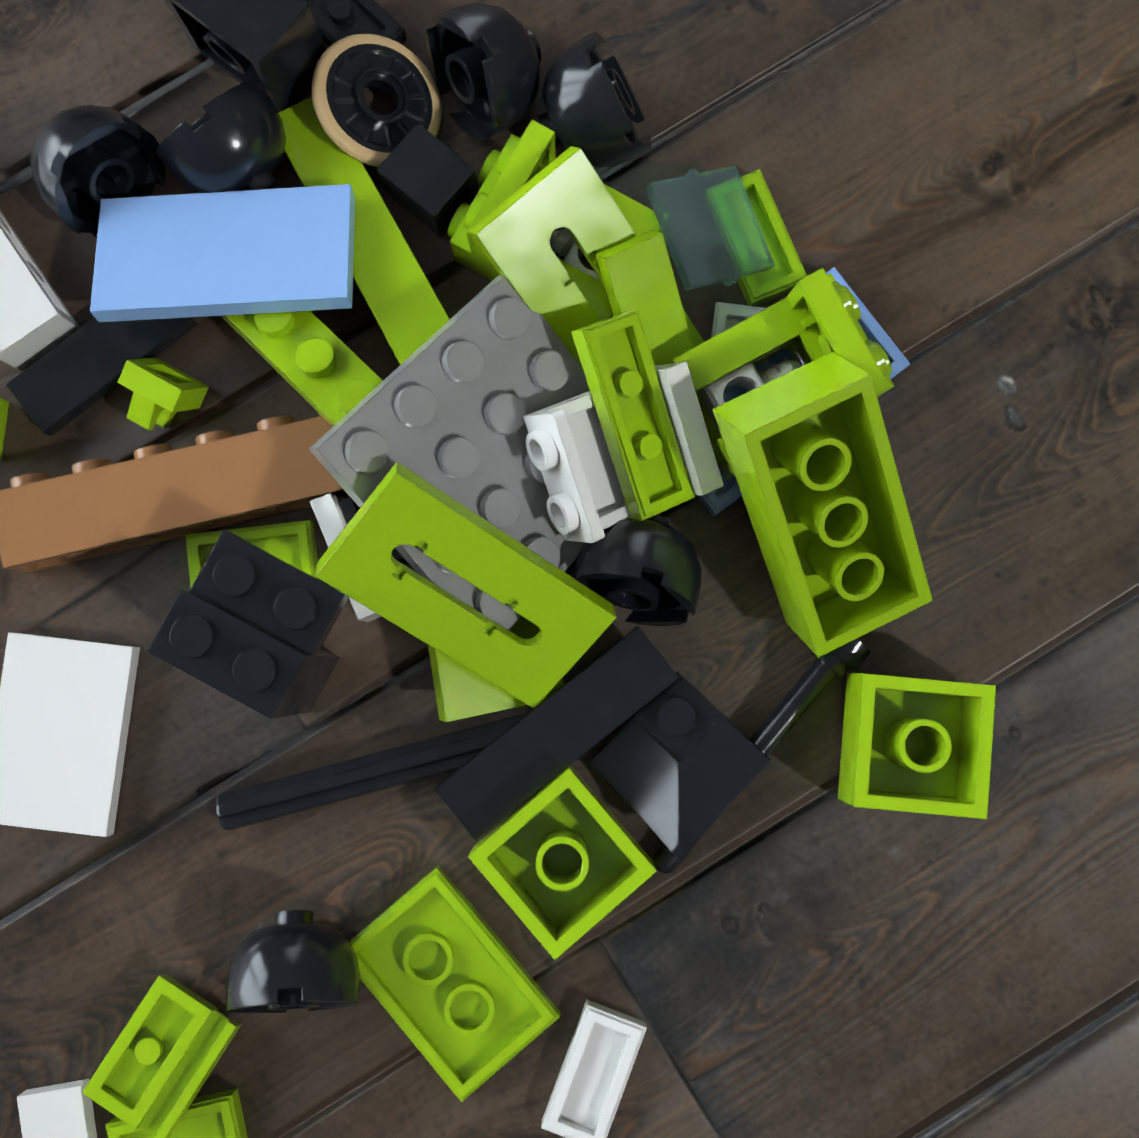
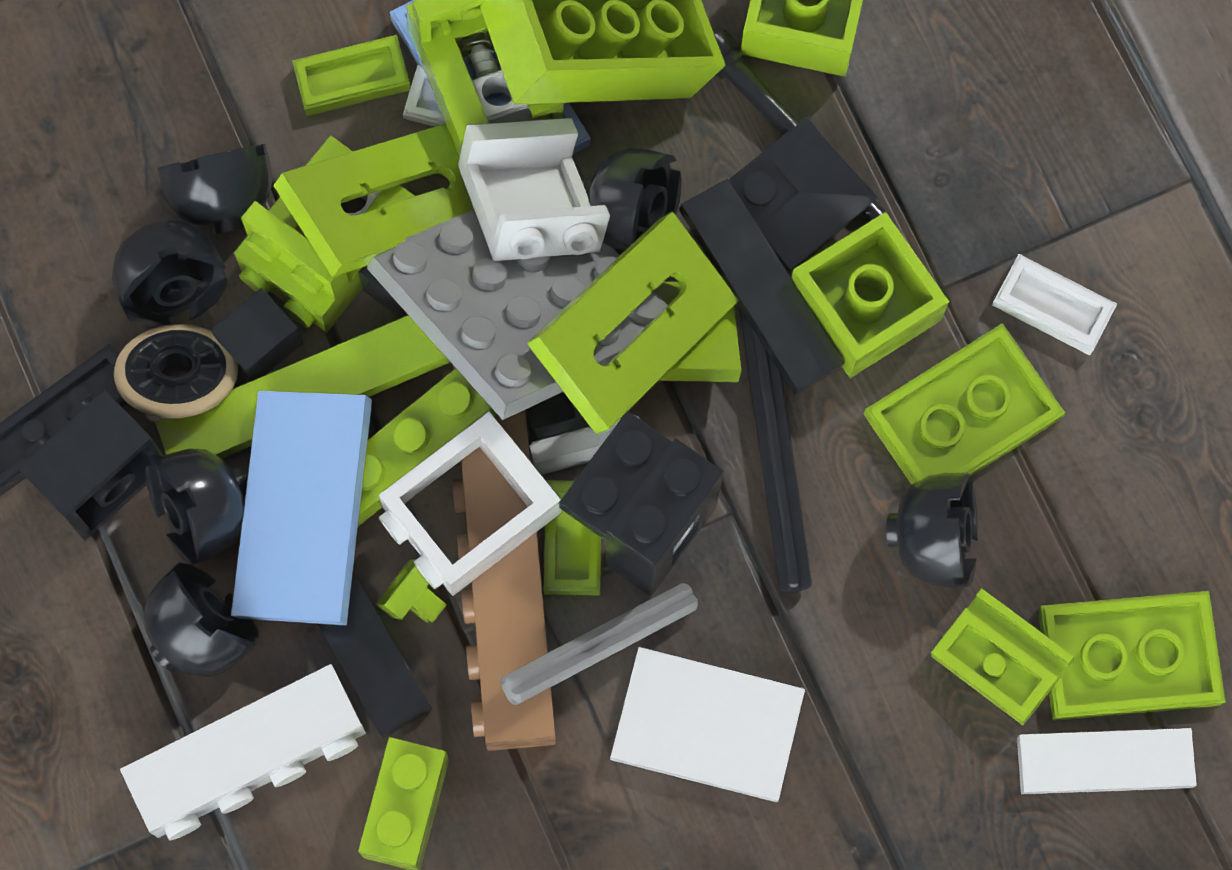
camera: 85 degrees left, 10 degrees down
(103, 592) = (598, 644): none -> light grey axle
(279, 483) = (515, 468): none -> white window
(633, 414) = (504, 175): lime tile -> none
(642, 278) = (406, 157): lime tile -> none
(710, 227) = (343, 102): clear light blue piece -> none

